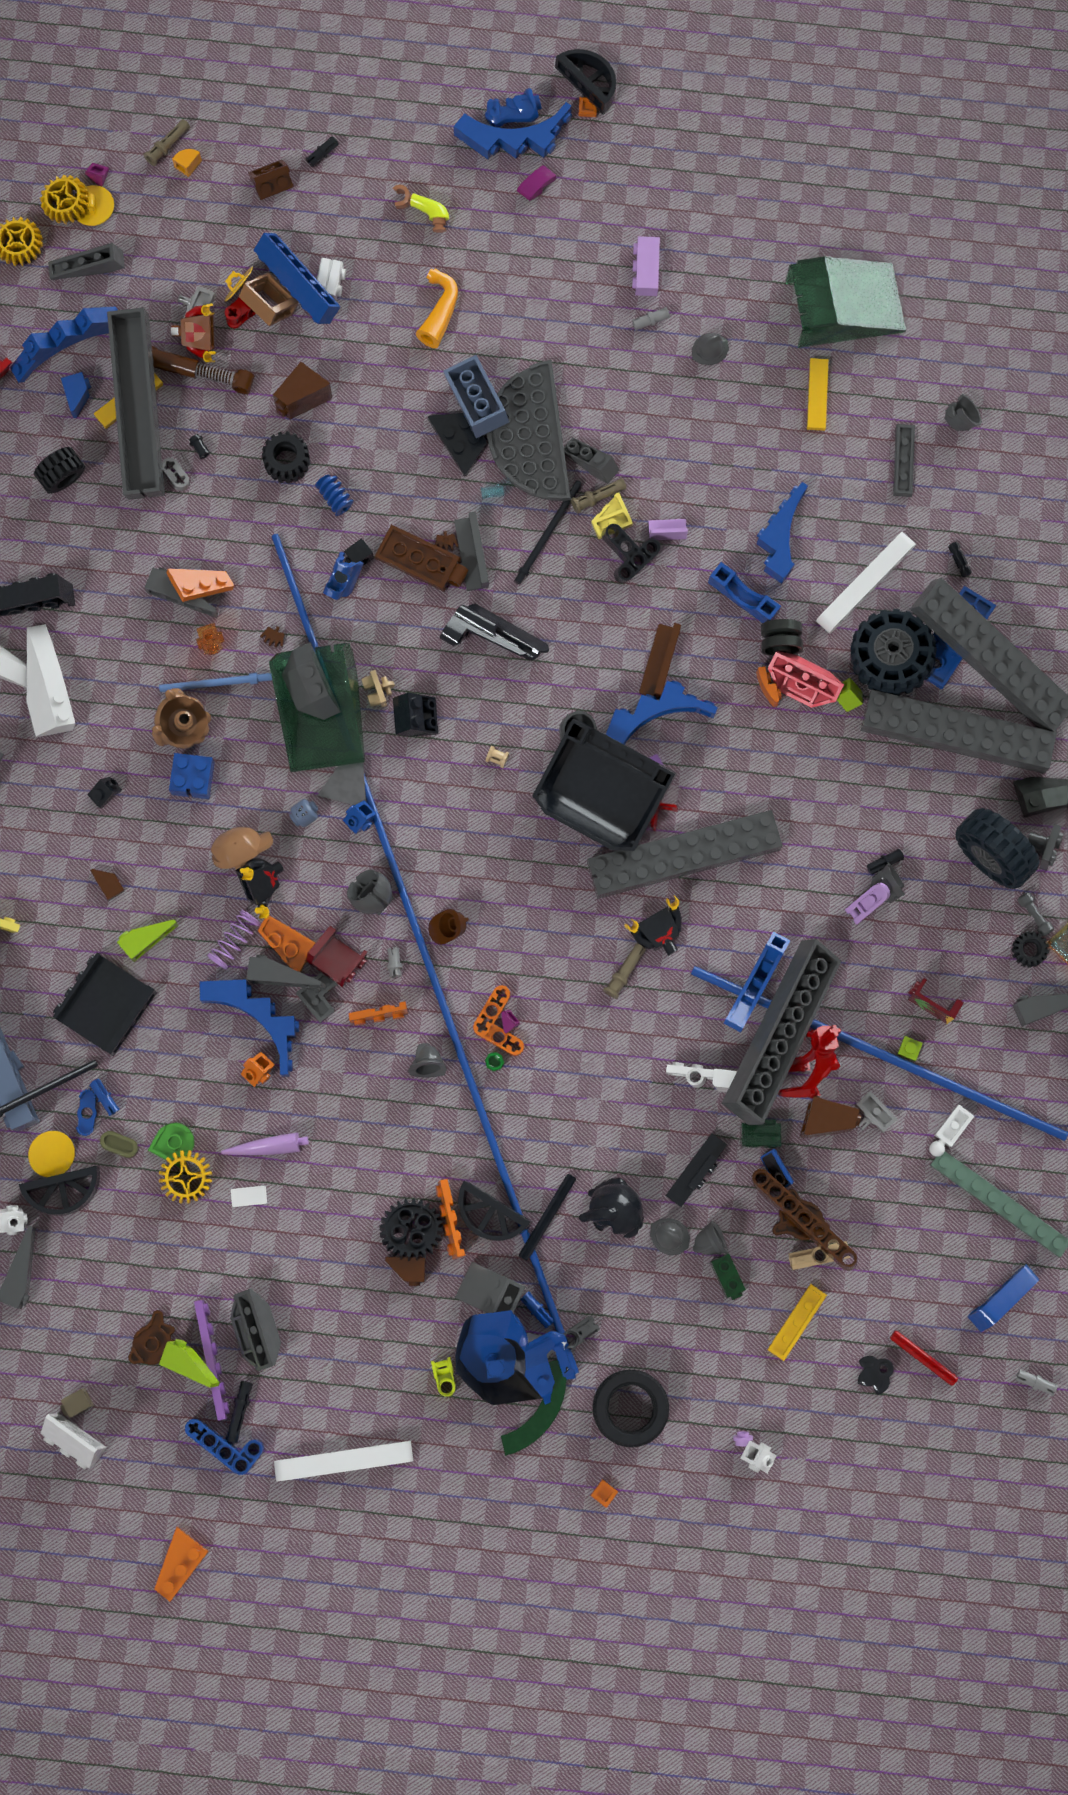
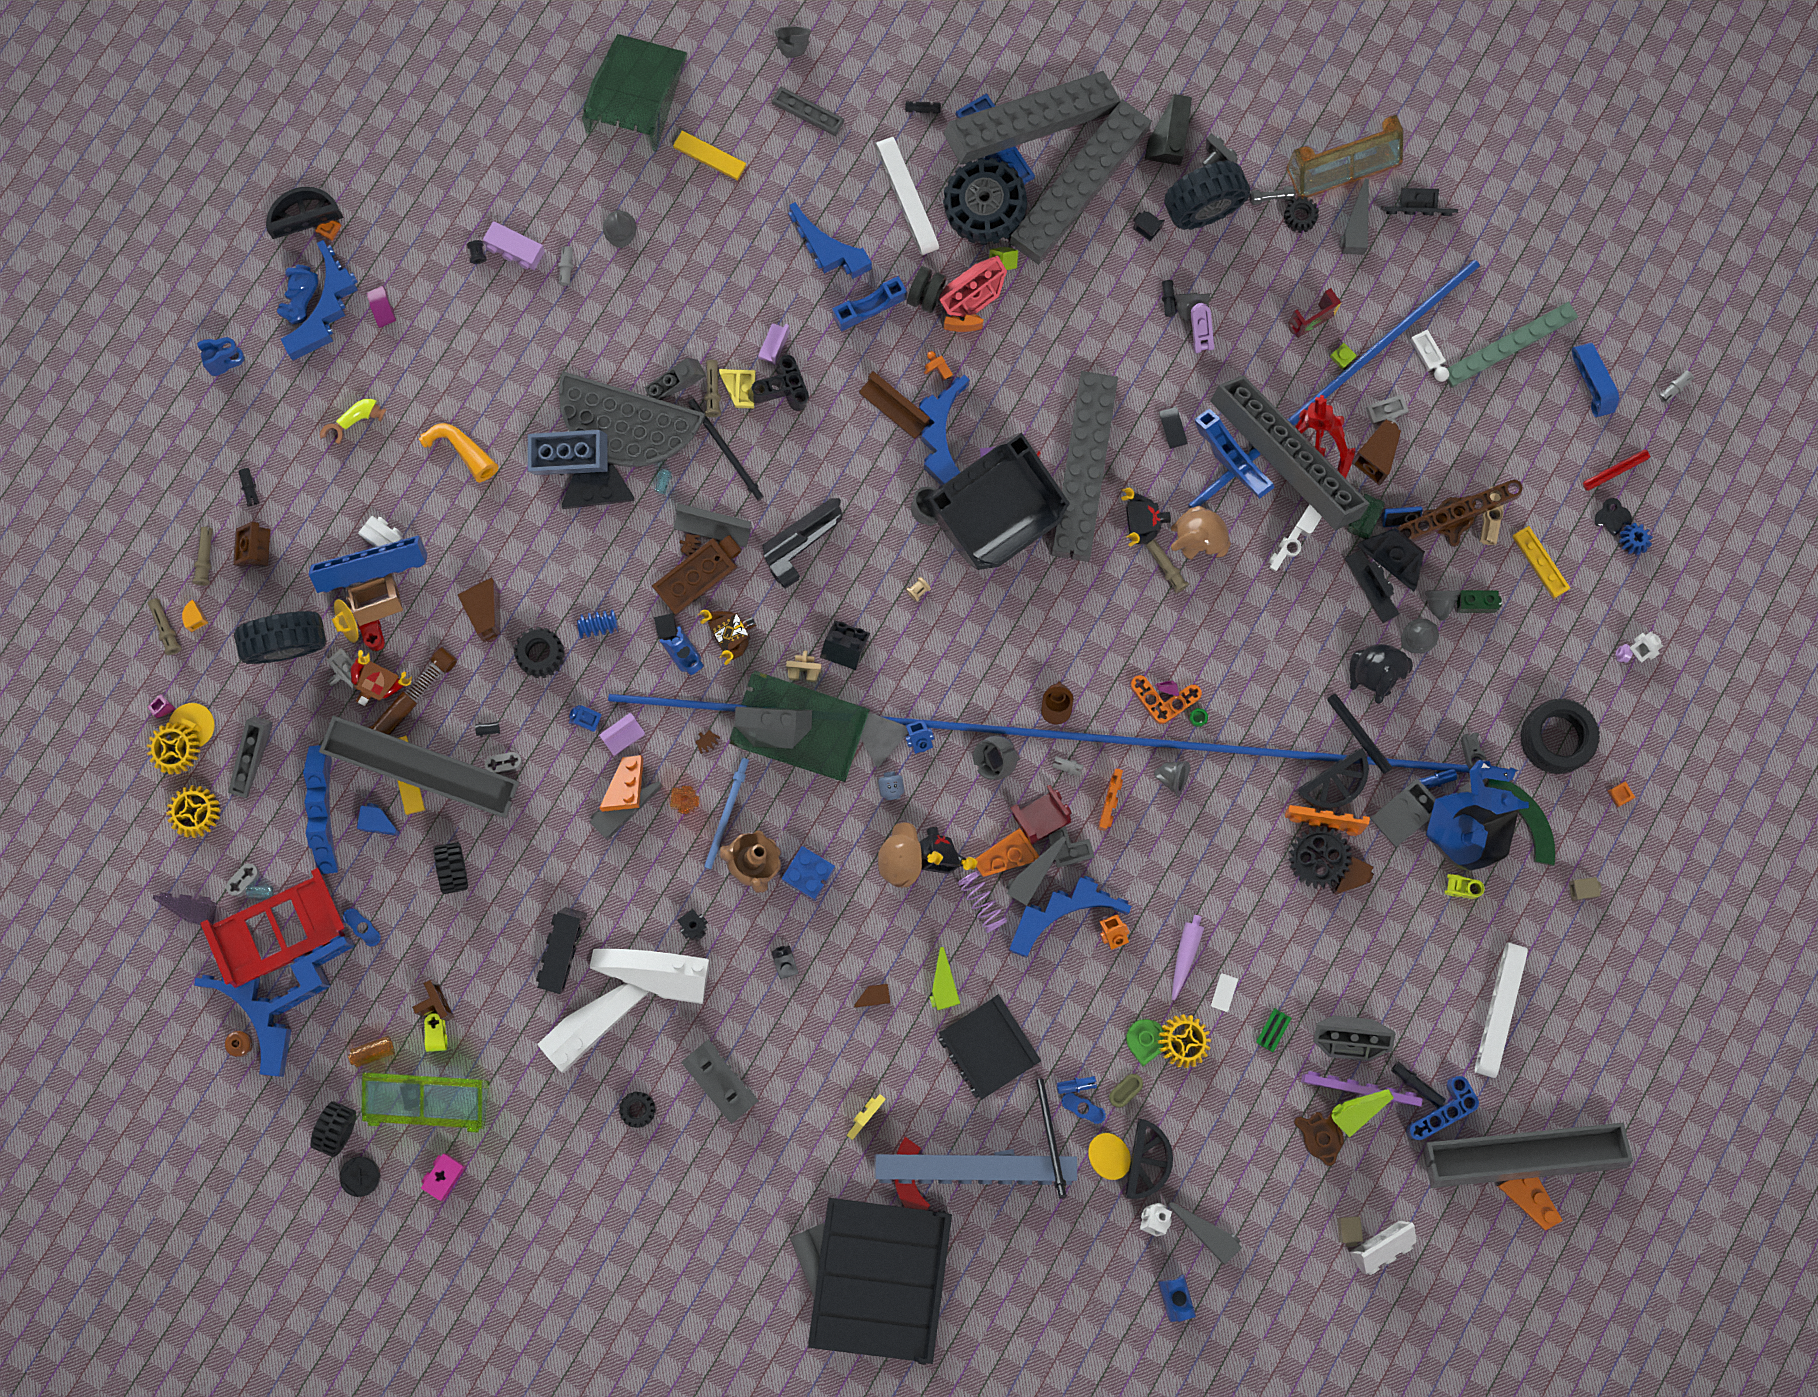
camera: 65 degrees left, 0 degrees up
(101, 697) = (692, 918): none -> black brick
(194, 234) = (280, 637): none -> black wheel
(214, 1541) = (1527, 1155): none -> dark grey piece
(230, 1247) = (1281, 1016): none -> green tile
(236, 147) = (202, 564): none -> dark tan pin
(245, 522) = (584, 717): none -> blue bracket
(246, 561) = (622, 734): none -> lavender panel
(379, 610) = (729, 632): none -> torso
(422, 72) = (216, 358): none -> blue piece
(495, 1494) = (1585, 888): none -> dark tan brick
(626, 238) = (473, 246): none -> black bush
(669, 987) = (1201, 531): none -> medium nougat piece
(718, 681) = (939, 364): none -> orange piece
(735, 1179) = (1396, 555): none -> black wing
(760, 919) = (1173, 427): none -> black slope
(869, 1401) = (1635, 546): none -> blue gear
(947, 811) = (1147, 225): none -> black window

